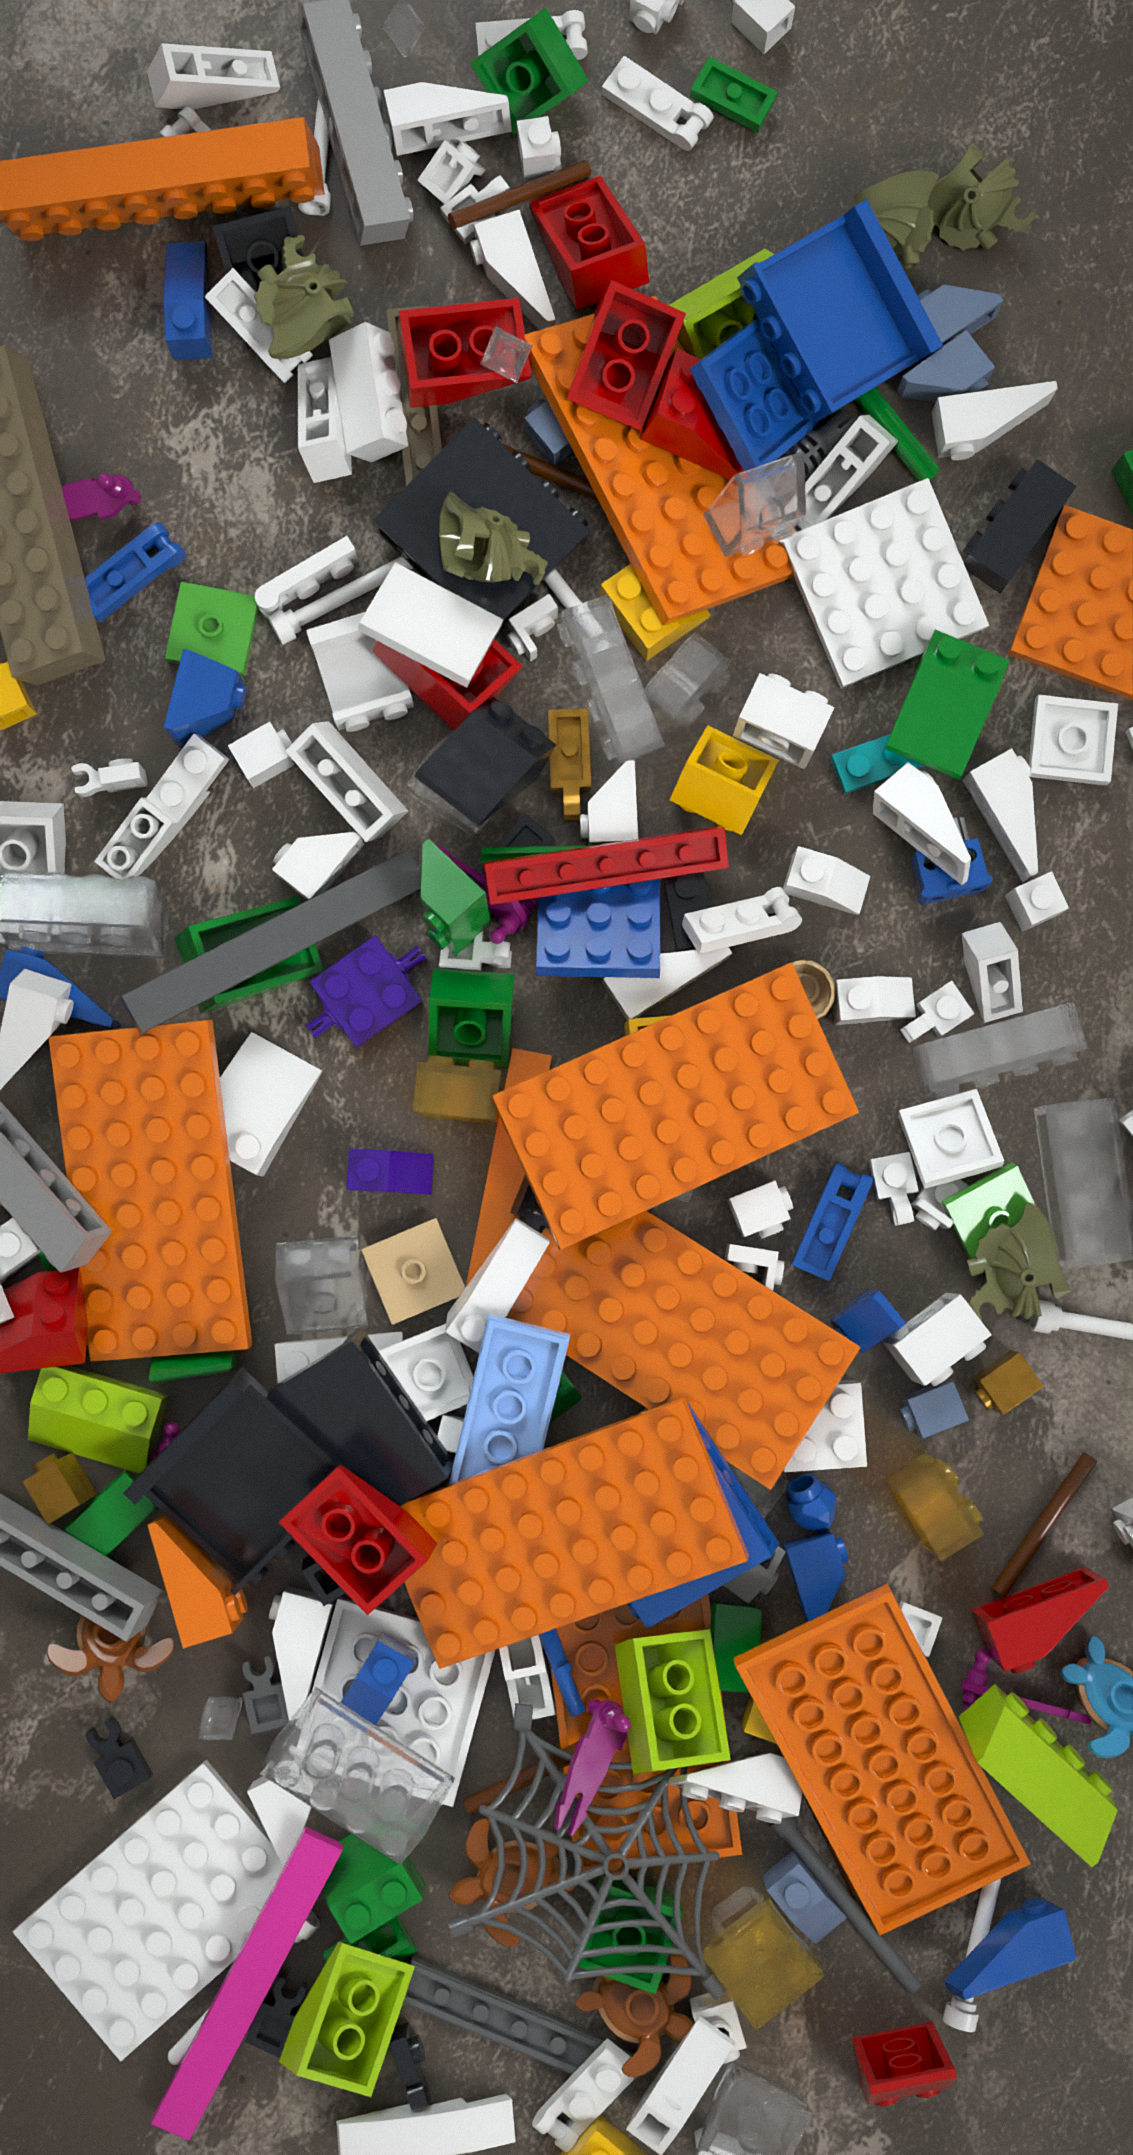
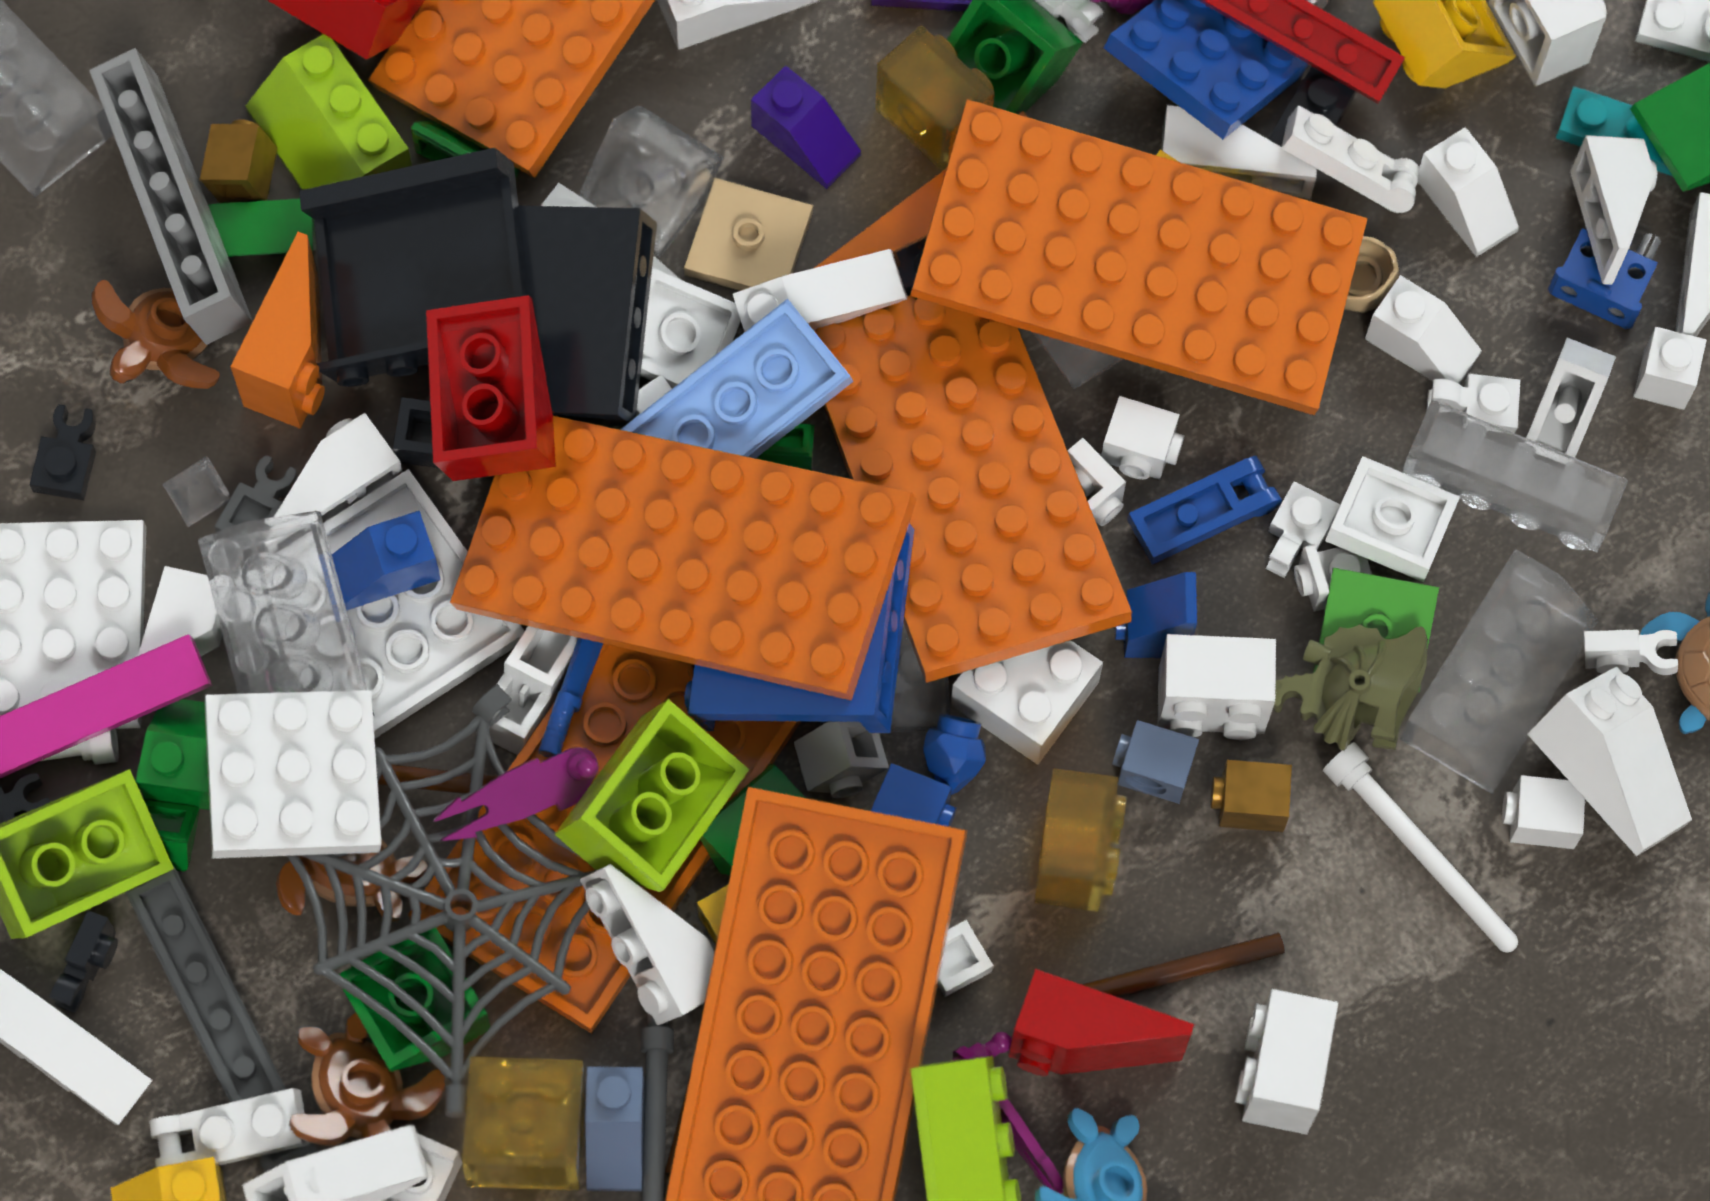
camera: 40 degrees right, 15 degrees down
(448, 1878) = (292, 774): none -> white plate

